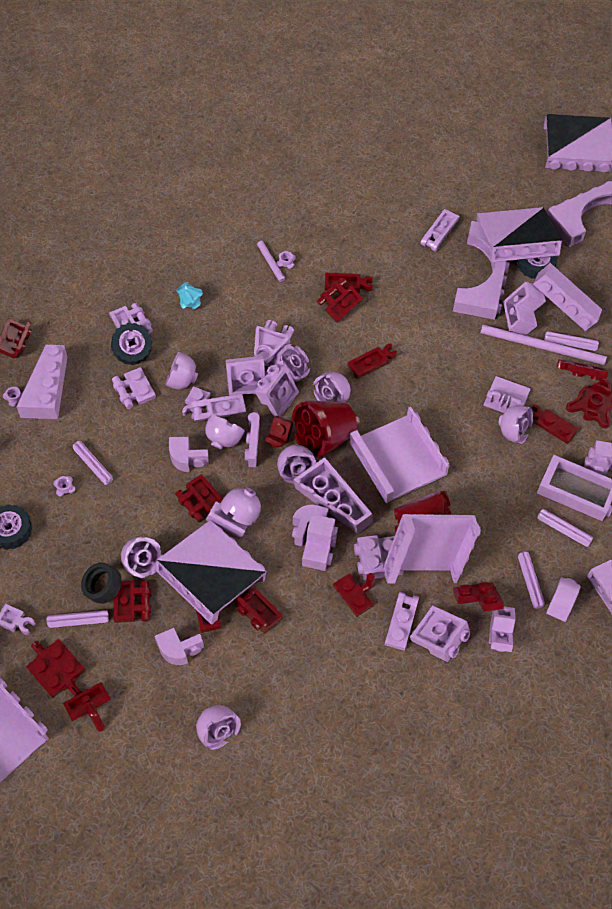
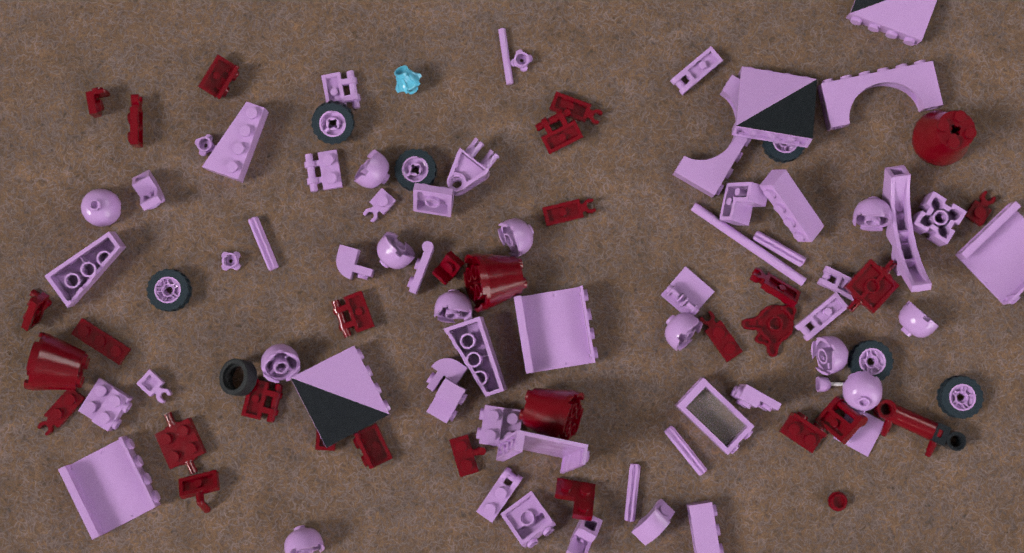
camera: 20 degrees right, 25 degrees up
(77, 618) = (210, 401): lavender axle -> none
(176, 651) = (286, 461): lavender brick -> none
(210, 362) = (410, 160): none -> black wheel
(219, 407) = (398, 221): lavender plate -> none
(225, 521) = (371, 348): lavender panel -> none
(242, 504) = (386, 341): lavender cylinder -> none
(277, 389) = (459, 223): lavender plate -> none
(295, 361) = (484, 196): lavender cylinder -> none

